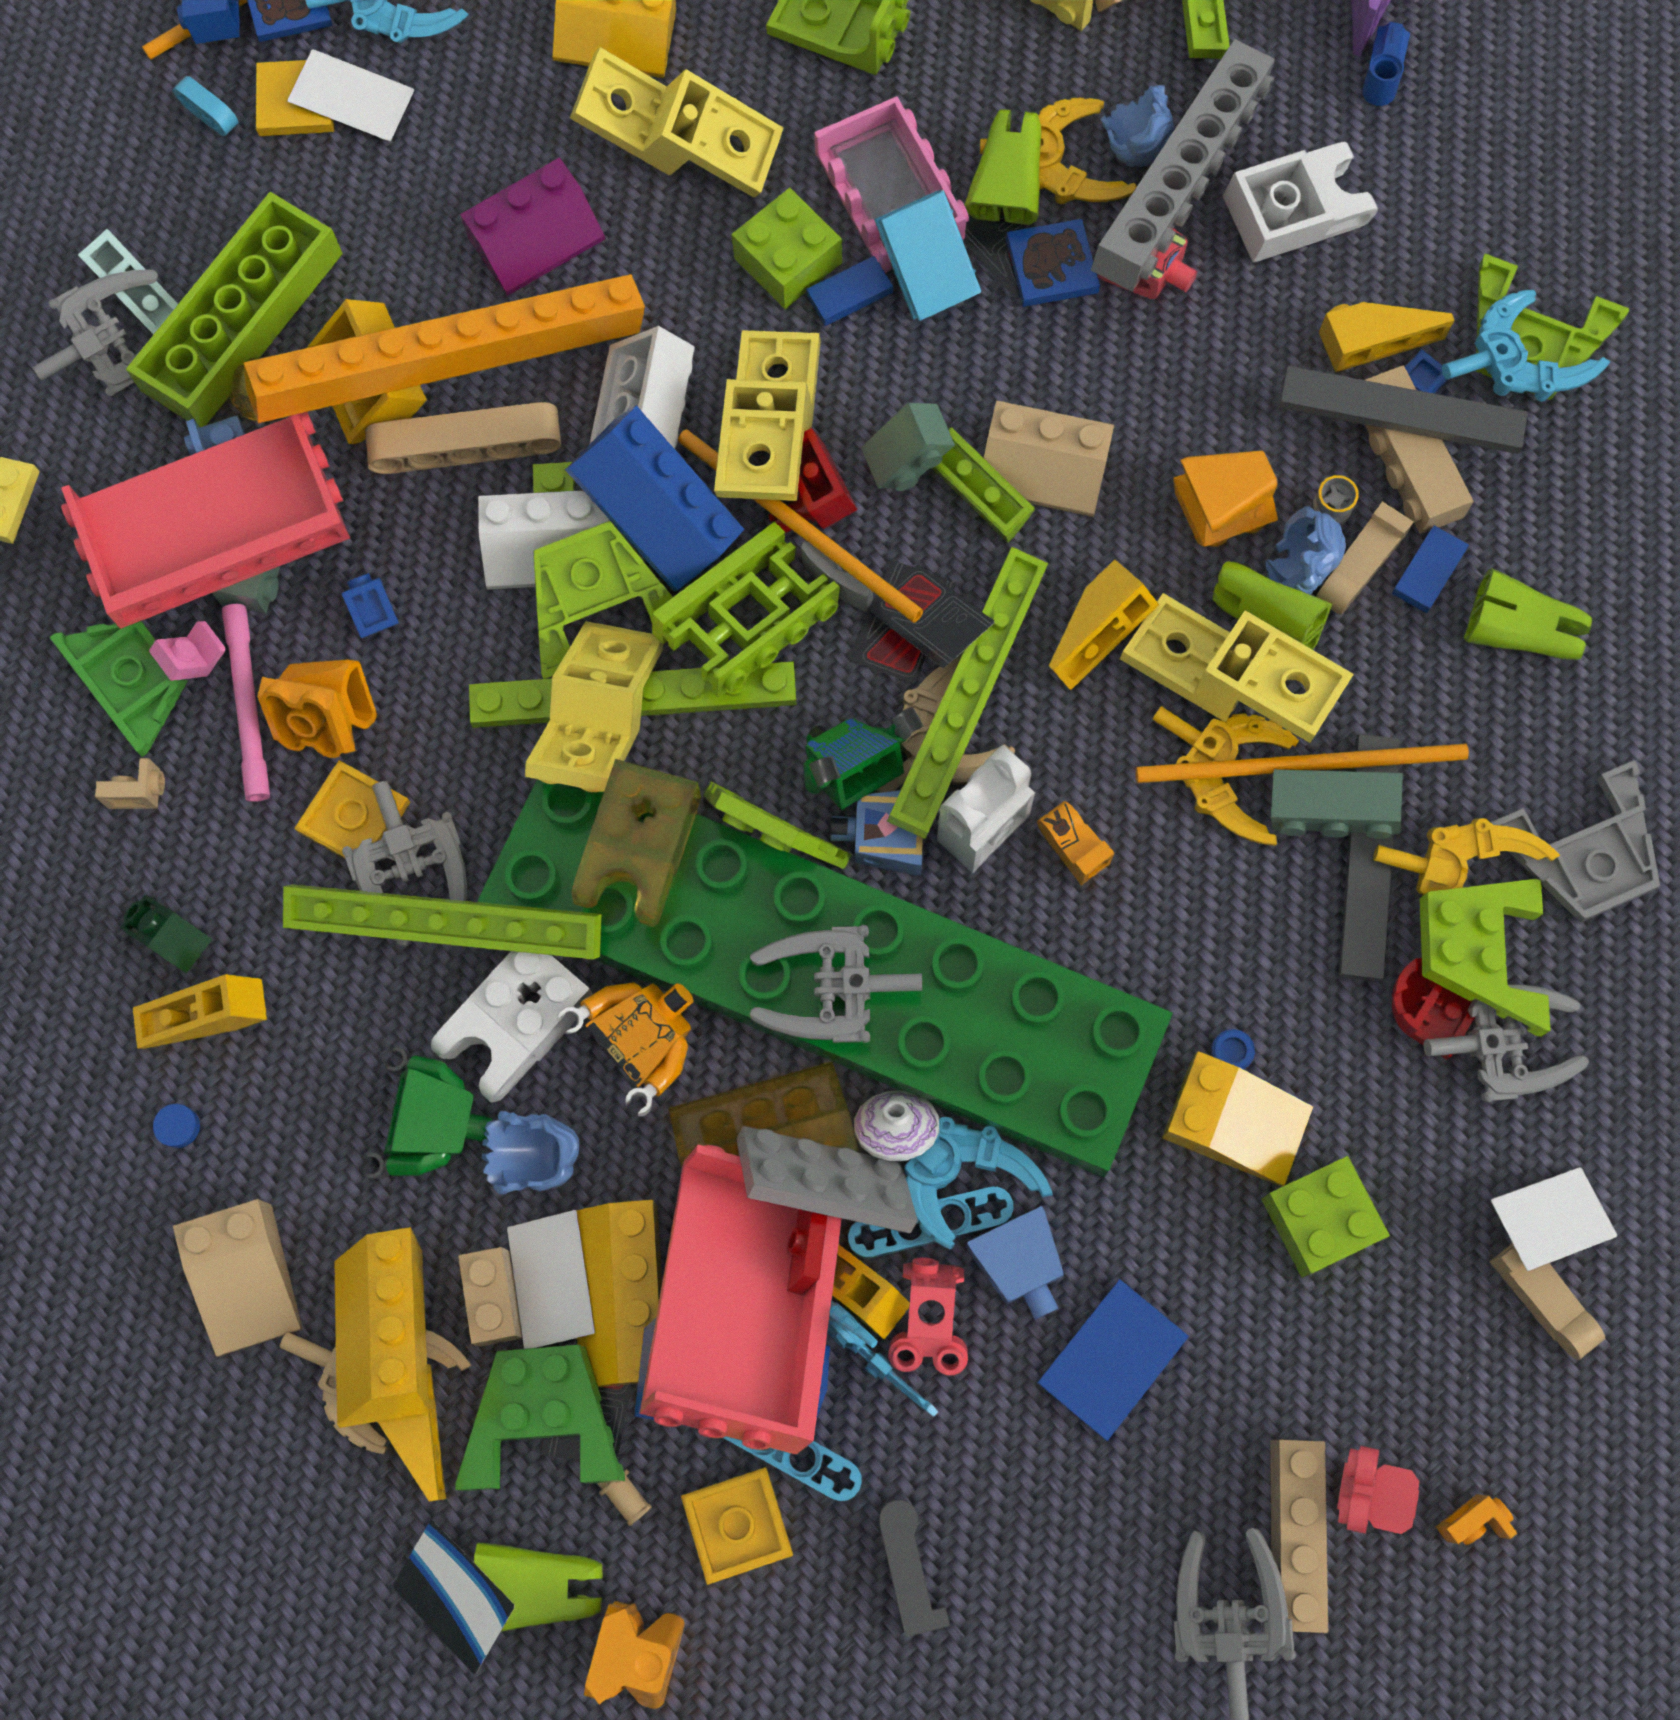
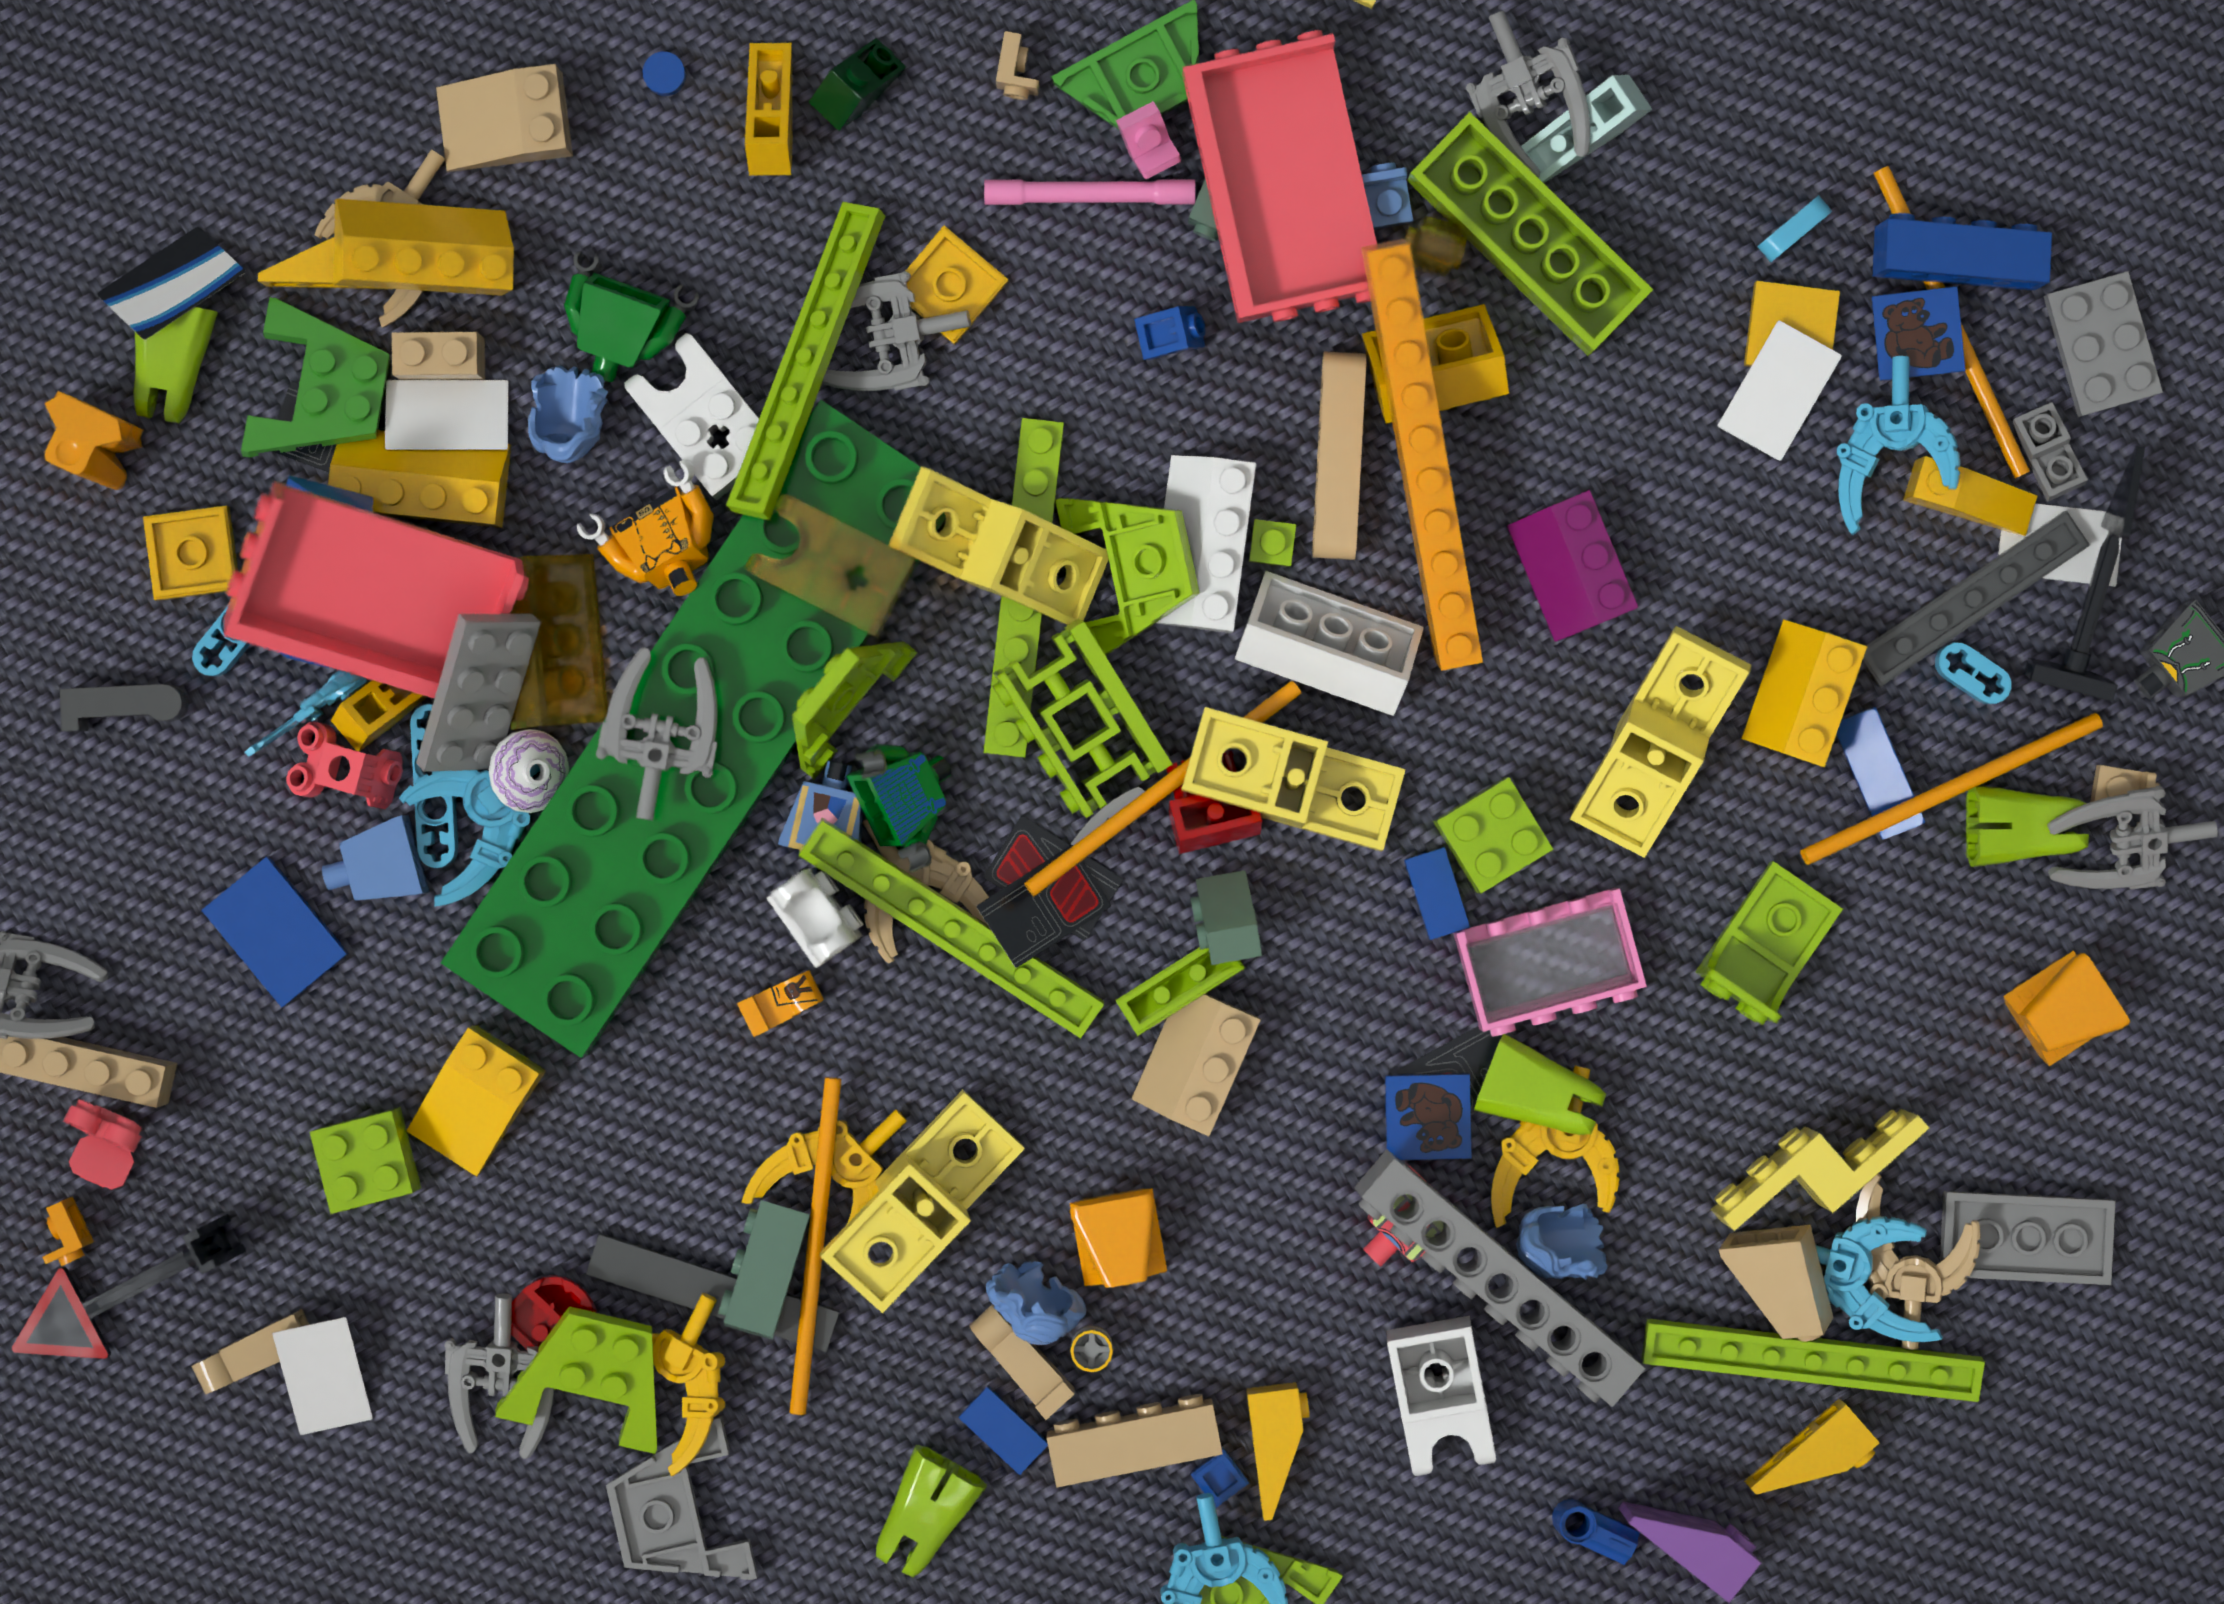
camera: 100 degrees right, 15 degrees up
(318, 706) = (1061, 266): light orange piece -> none
(625, 1499) = (229, 456): tan pin -> none
(654, 498) = (1209, 643): blue slope -> none
(806, 1247) = (410, 661): red plate -> none
(928, 255) = (1446, 983): medium azure piece -> none
(1102, 619) = (1006, 1080): yellow slope -> none
(1234, 1048) = (545, 1111): blue tile -> none
(1274, 603) = (972, 1263): lime piece -> none
(1403, 409) = (1168, 1438): dark grey tile -> none
(1569, 1504) = (66, 1322): none -> black piece

